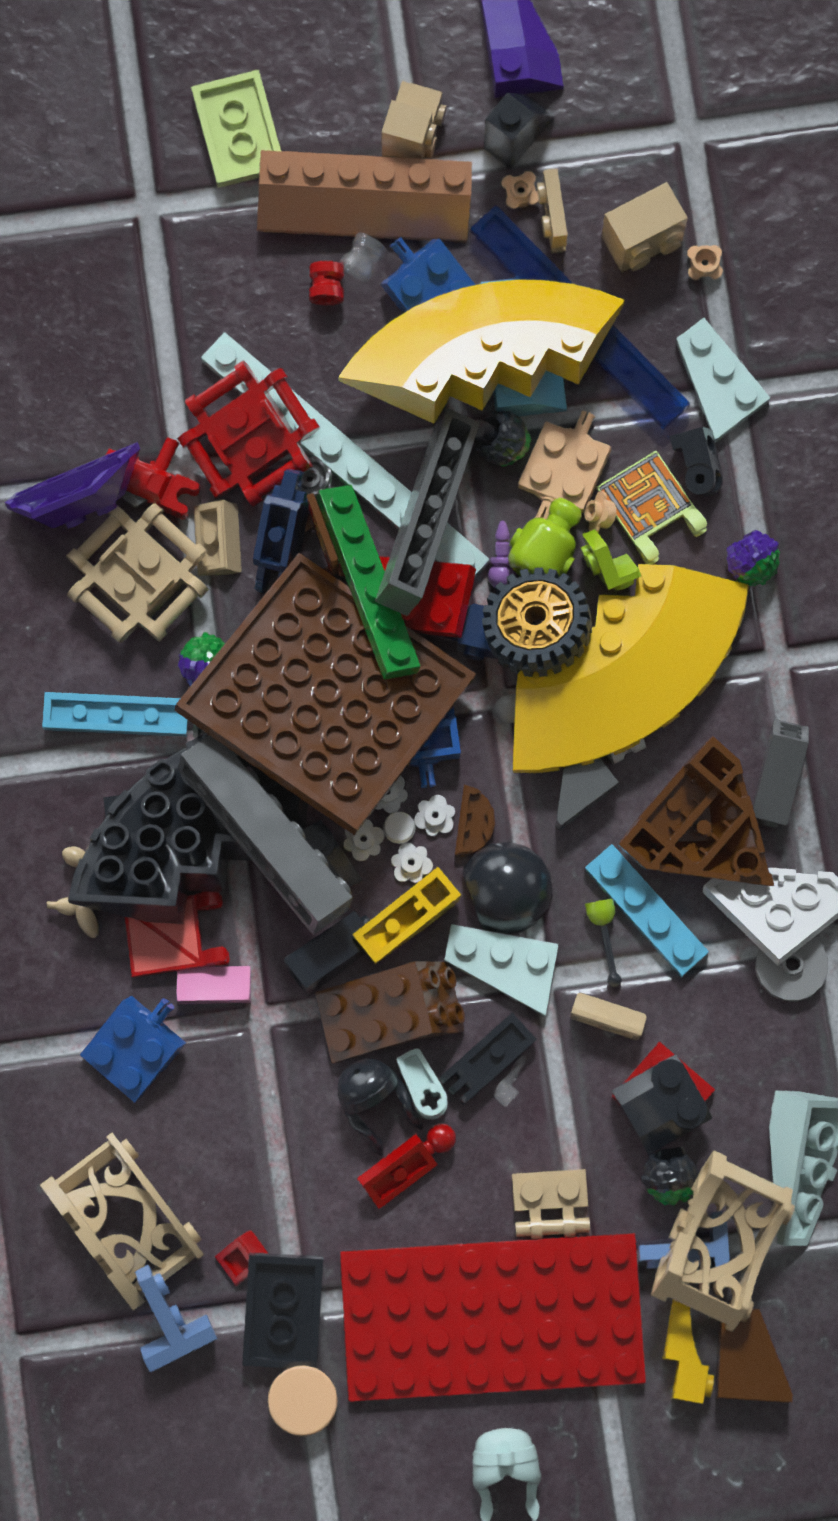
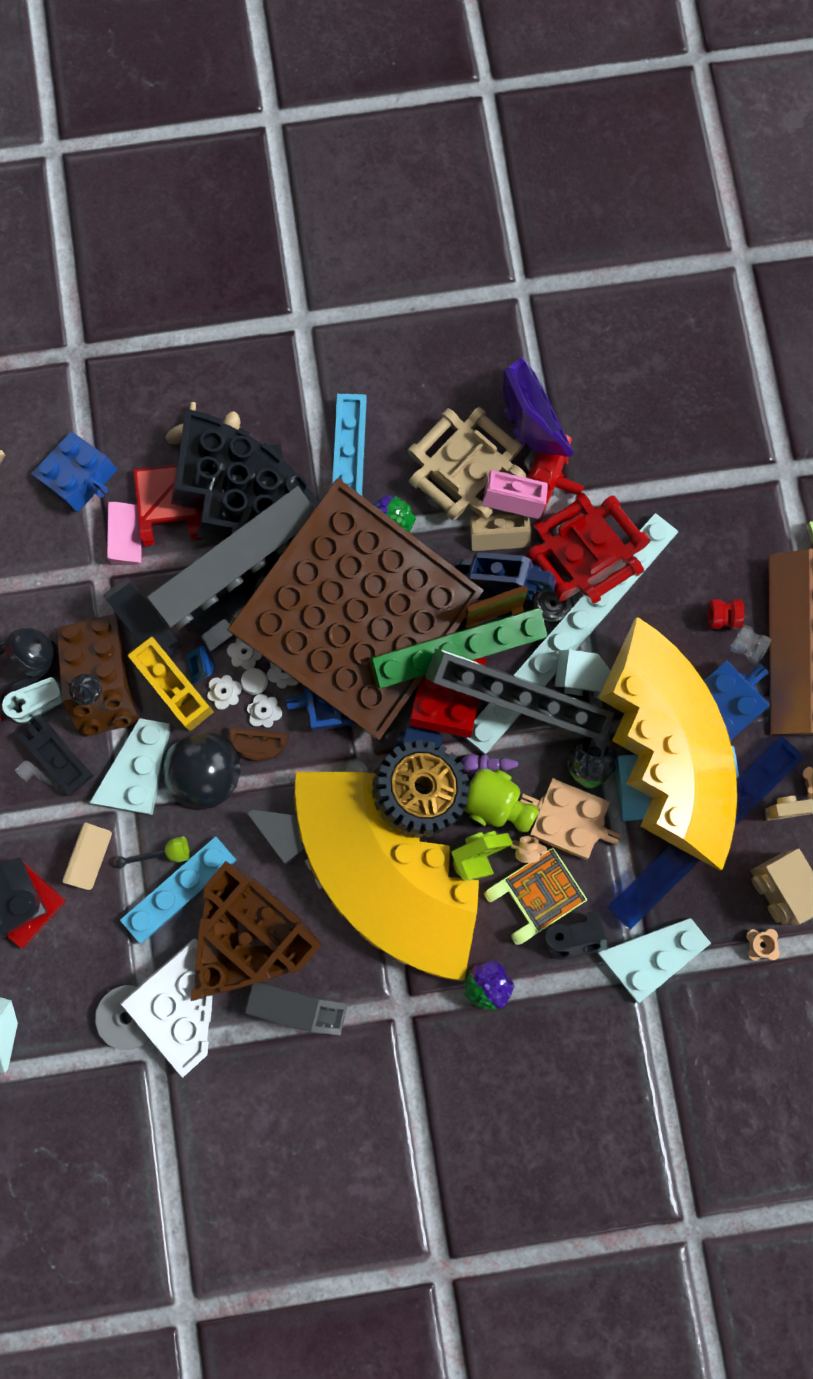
camera: 90 degrees right, 0 degrees up
(180, 513) = (515, 494): none -> bright pink slope
(379, 890) = (199, 664): none -> blue slope
(397, 446) = (581, 672): none -> light aqua slope
(421, 1001) = (85, 689): none -> black plate

